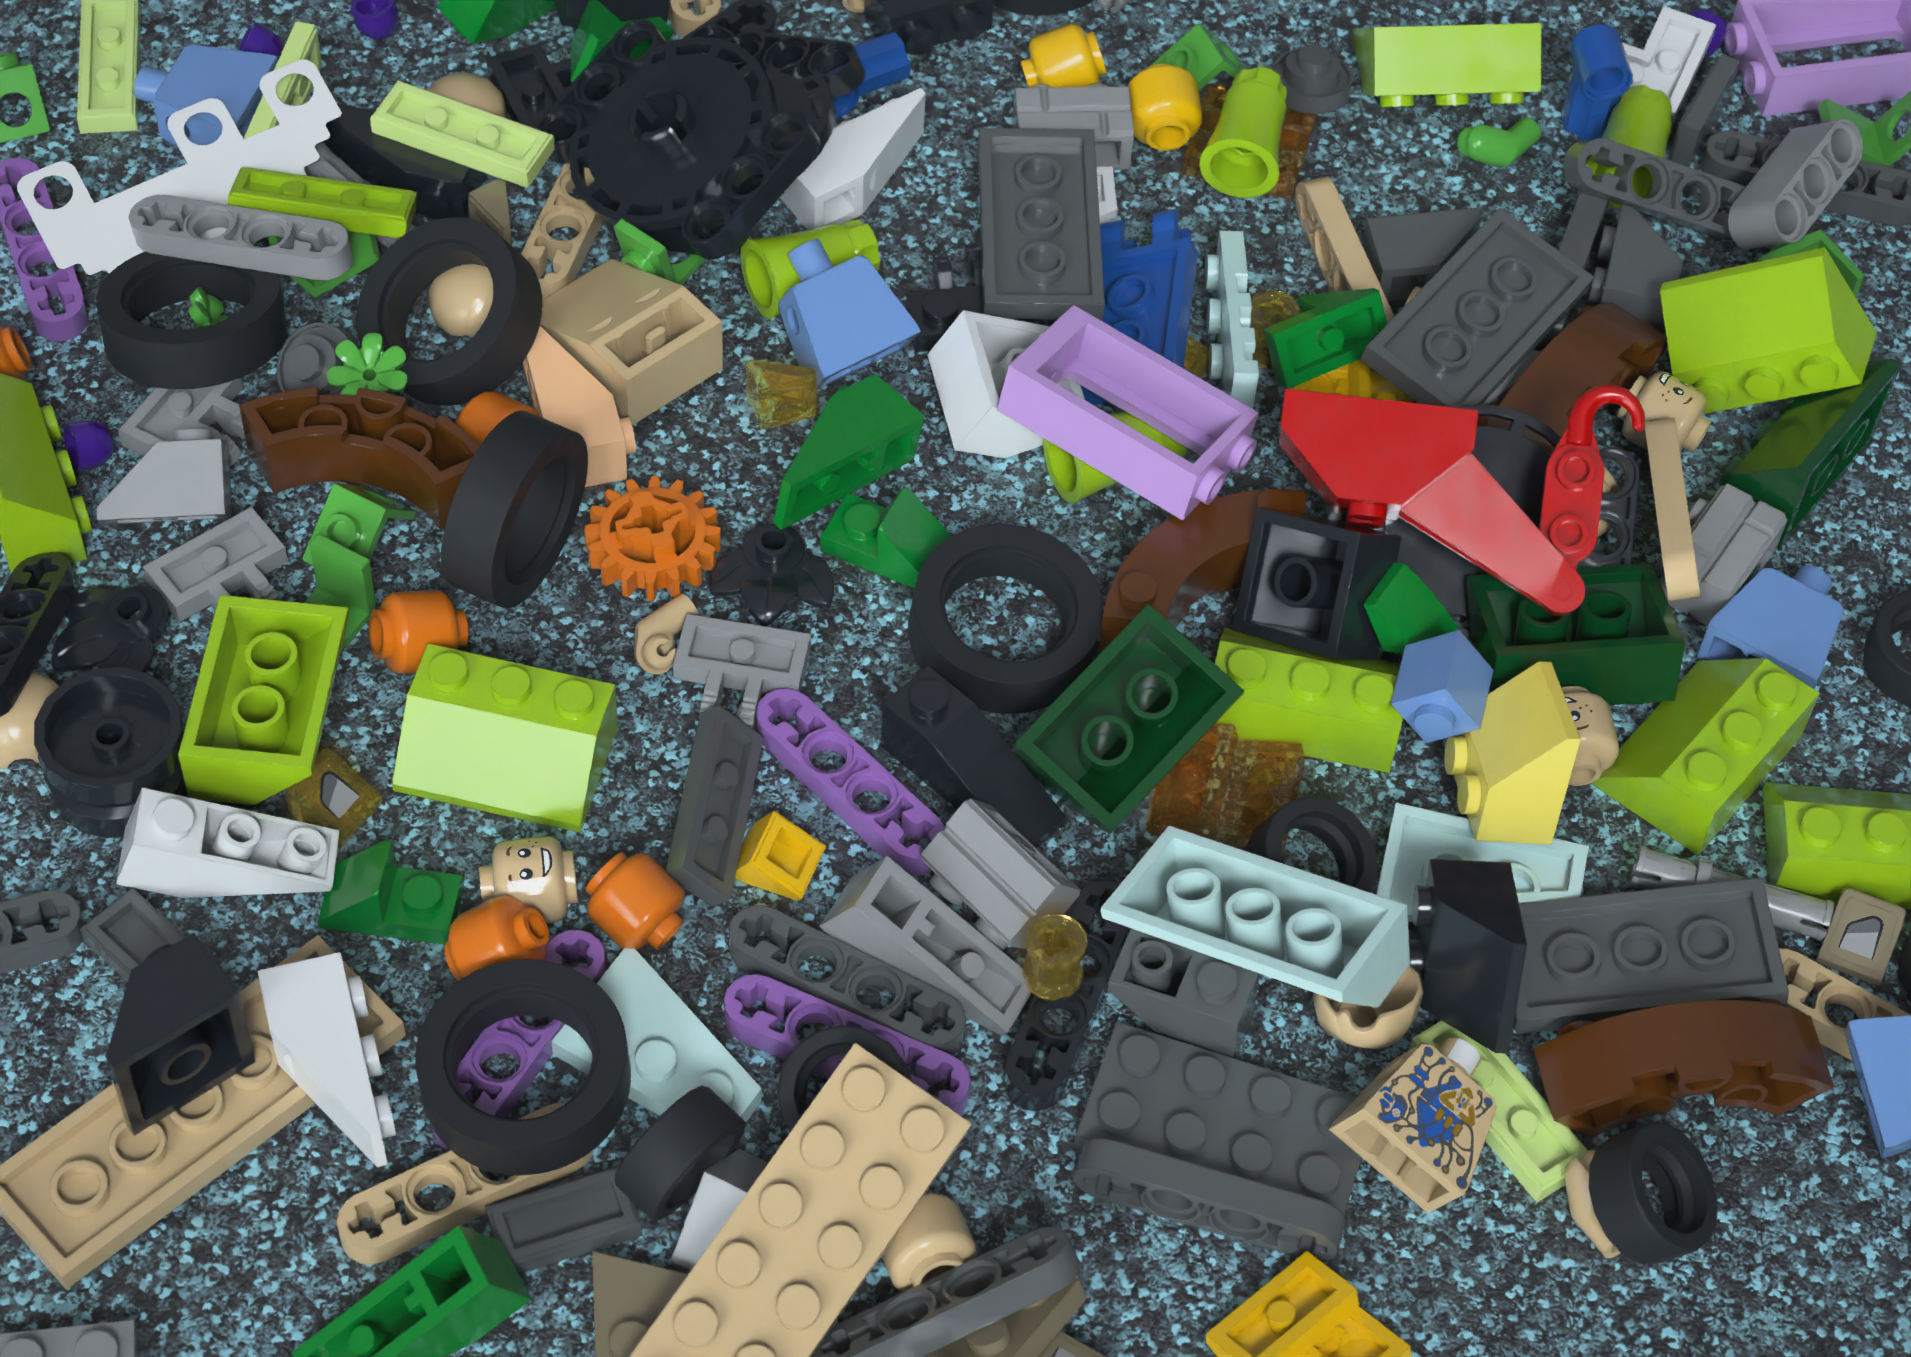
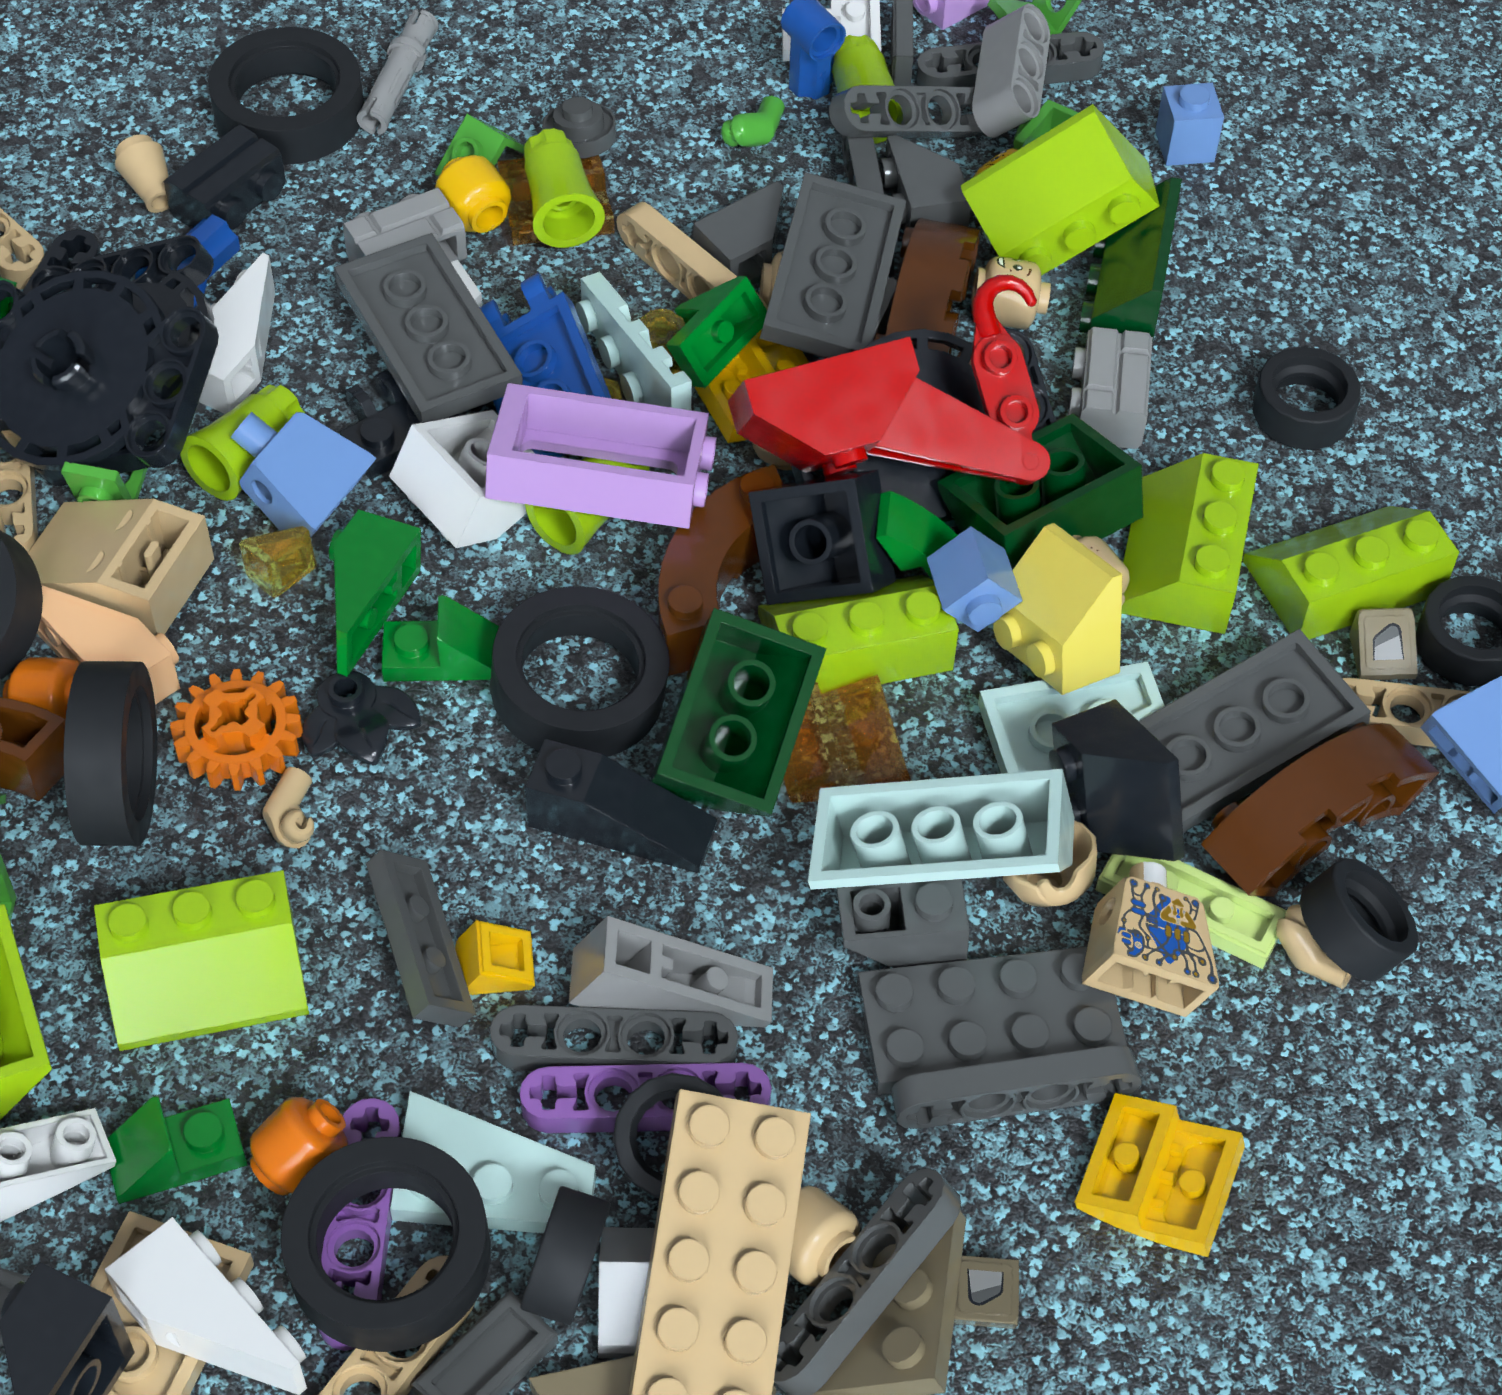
camera: 25 degrees left, 0 degrees up
(333, 797) = (75, 1083): clear yellow slope -> none
(409, 623) = (63, 898): orange head -> none
(534, 873) = (295, 1067): tan head -> none
(635, 901) = (398, 1053): orange head -> none
(740, 658) = (370, 802): light grey hinge -> none
(842, 786) = (525, 859): medium lavender beam -> none
(996, 874) = (696, 893): light grey brick -> none
(1054, 956) = (789, 922): clear yellow bush -> none
(1064, 58) = (367, 185): yellow head -> none
(1083, 1004) = (802, 966): black beam -> none
(1333, 825) = (951, 734): black tyre -> none
(1449, 62) = (682, 73): lime slope -> none
(1672, 510) = (1070, 366): tan beam -> none
(1778, 620) = (1191, 420): medium blue torso -> none
(1788, 908) = (1217, 657): light grey pin -> none

